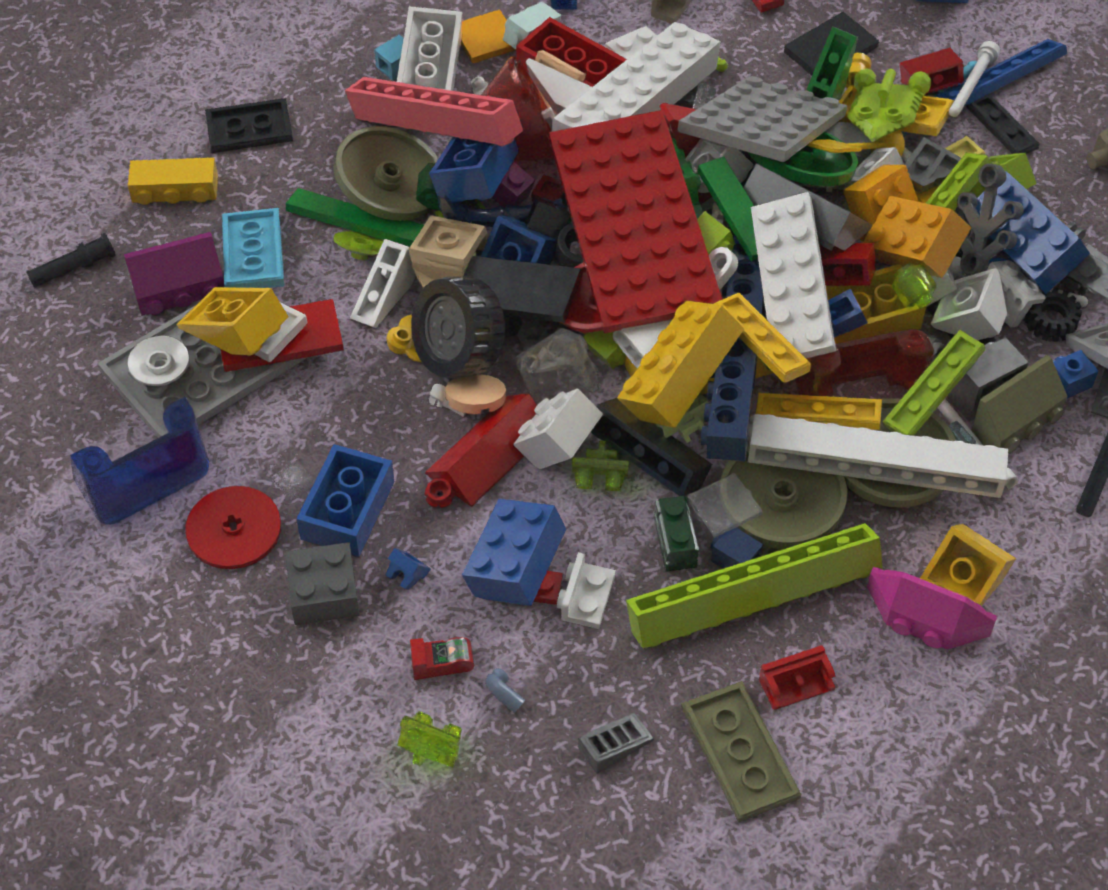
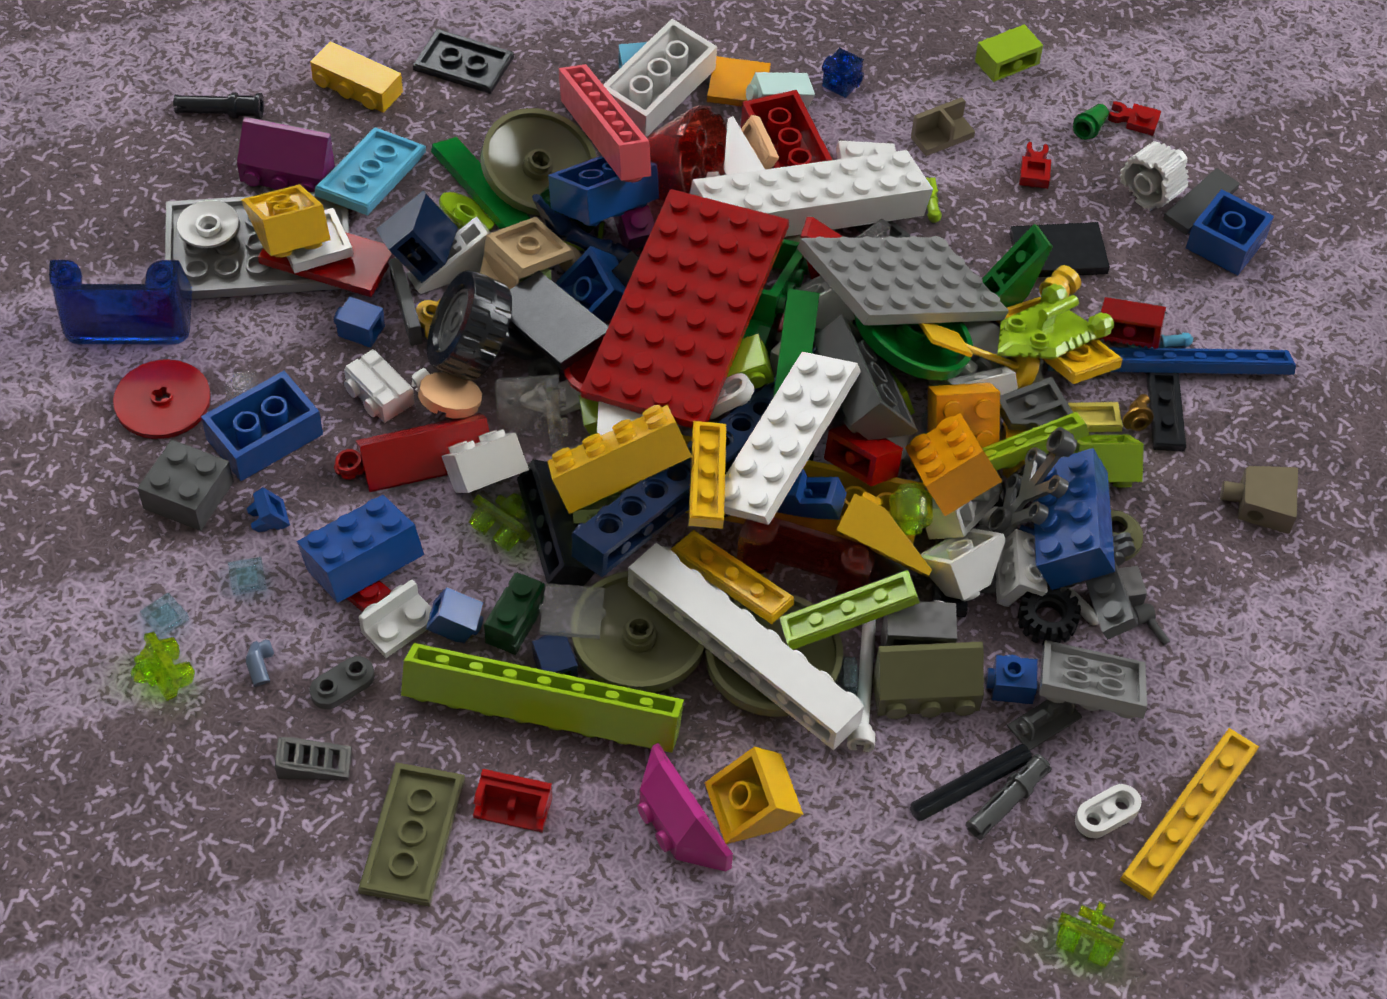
camera: 30 degrees right, 0 degrees up
(349, 375) = (359, 321): none -> blue brick
(353, 279) = (419, 236): none -> dark blue slope
(374, 339) = (405, 302): none -> dark grey tile
(391, 699) = (164, 615): none -> clear light blue tile
(411, 418) = (378, 386): none -> white brick
(432, 626) = (247, 576): none -> clear light blue tile
(441, 657) = (228, 602): red leg -> none
(583, 665) = (343, 682): none -> dark grey plate
(632, 562) = (455, 616): none -> brick
(910, 309) = (873, 526): none -> yellow slope
(986, 55) = (1208, 335): white piece -> none
(990, 136) = (1139, 414): none -> pearl gold plate

